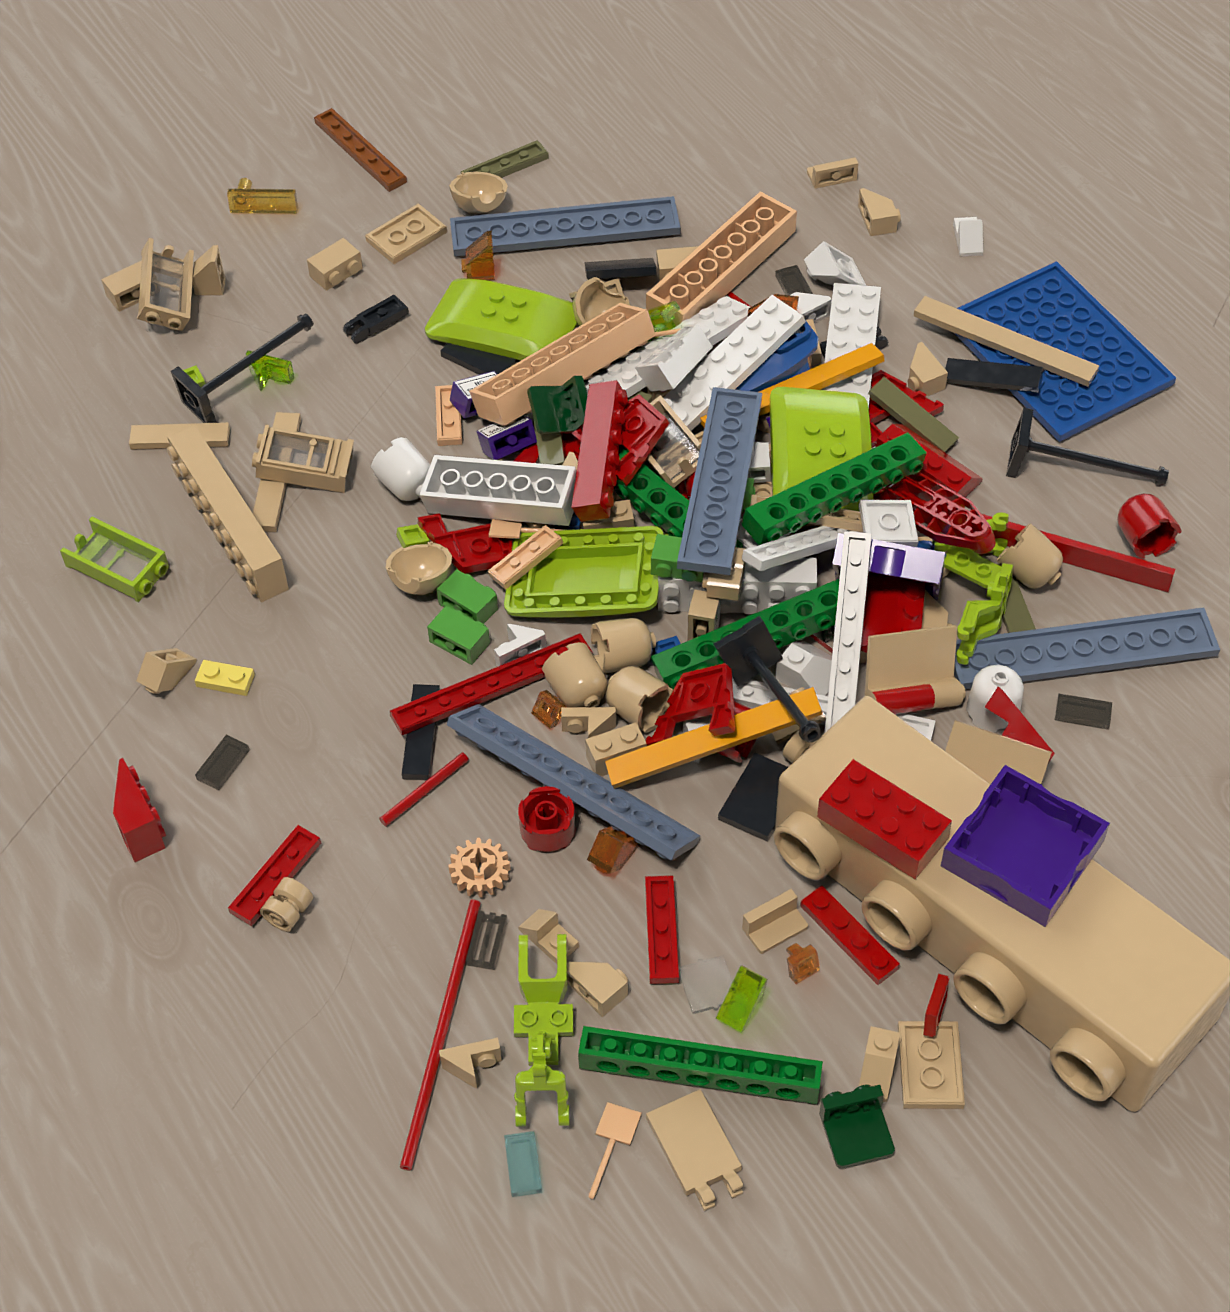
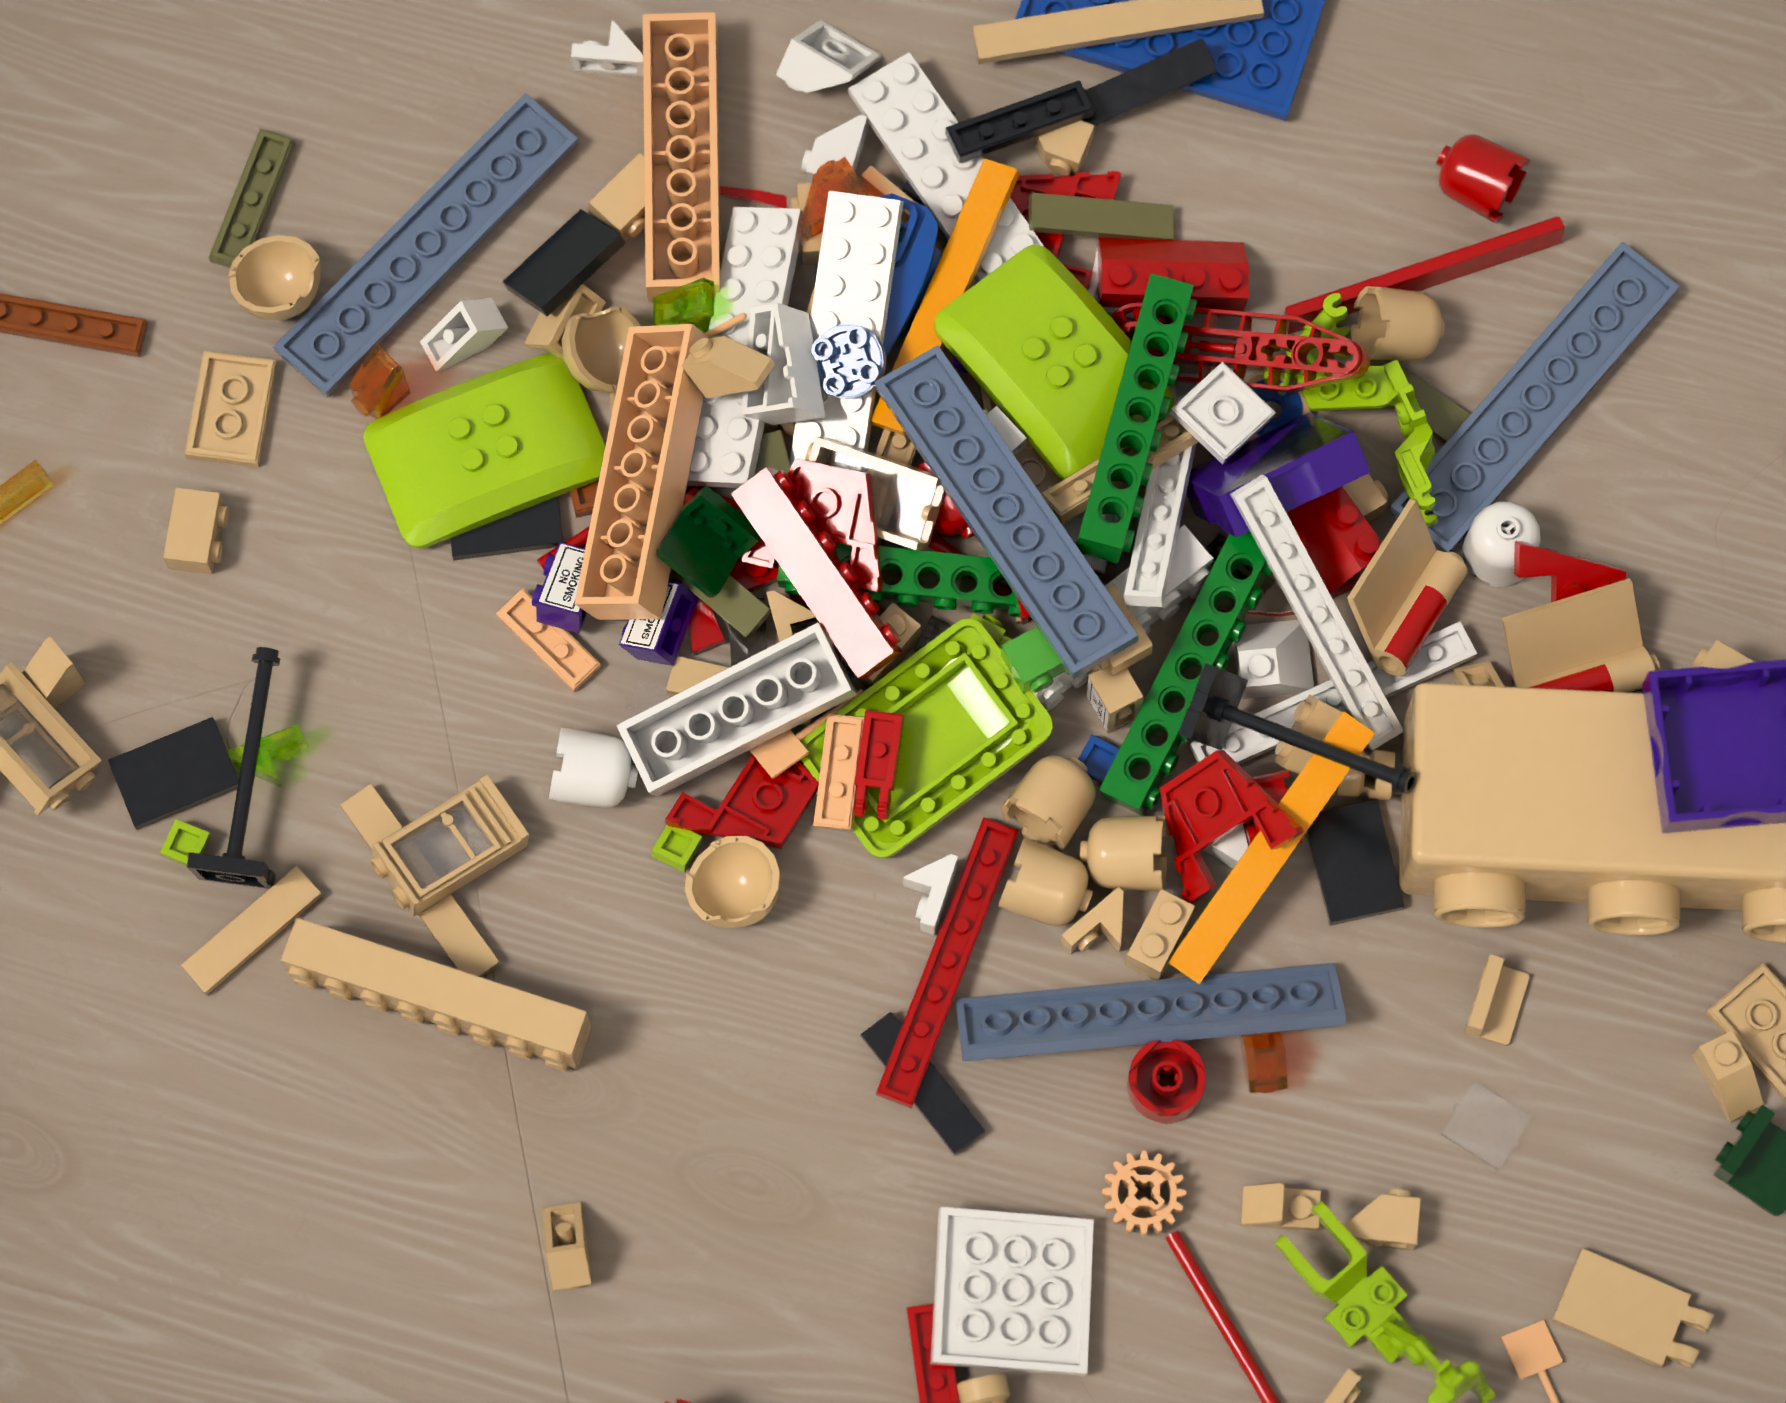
camera: 40 degrees left, 20 degrees up
(117, 559) = (359, 1157): lime door -> none
(215, 350) = (174, 773): none -> black tile
(222, 762) = (742, 1301): clear smoke tile -> none
(224, 677) = (637, 1198): light yellow plate -> none
(359, 858) = (1012, 1291): none -> white plate
(375, 318) = (326, 568): black hinge -> none
(423, 789) = (992, 1141): red bar -> none
(458, 634) = (853, 930): bright green brick -> none
(465, 594) = (818, 875): bright green brick -> none
(490, 919) = (1206, 1238): clear smoke tile -> none
(544, 267) = (464, 332): none -> white slope
(546, 562) = (878, 760): none -> red hinge
(548, 709) = (1039, 943): clear orange tile -> none
(644, 334) = (726, 366): none -> tan slope
(661, 929) = (1391, 1105): red plate -> none
(700, 1064) = (1566, 1226): green brick -> none
(709, 373) = (849, 360): none -> tile
(724, 204) = (618, 58): none -> white slope
(742, 998) = (1543, 1119): clear neon green slope -> none
(792, 280) = (789, 118): clear smoke tile -> none
(802, 962) = (1561, 1025): clear orange tile -> none
(850, 935) = (1579, 951): red plate -> none
(884, 818) = (1573, 830): red brick -> none
(908, 344) = (1019, 121): none -> black tile
(936, 1005) = (1736, 965): red tile -> none
(1022, 443) = (1261, 168): black tile -> none
(1083, 711) = (1595, 479): clear smoke tile -> none

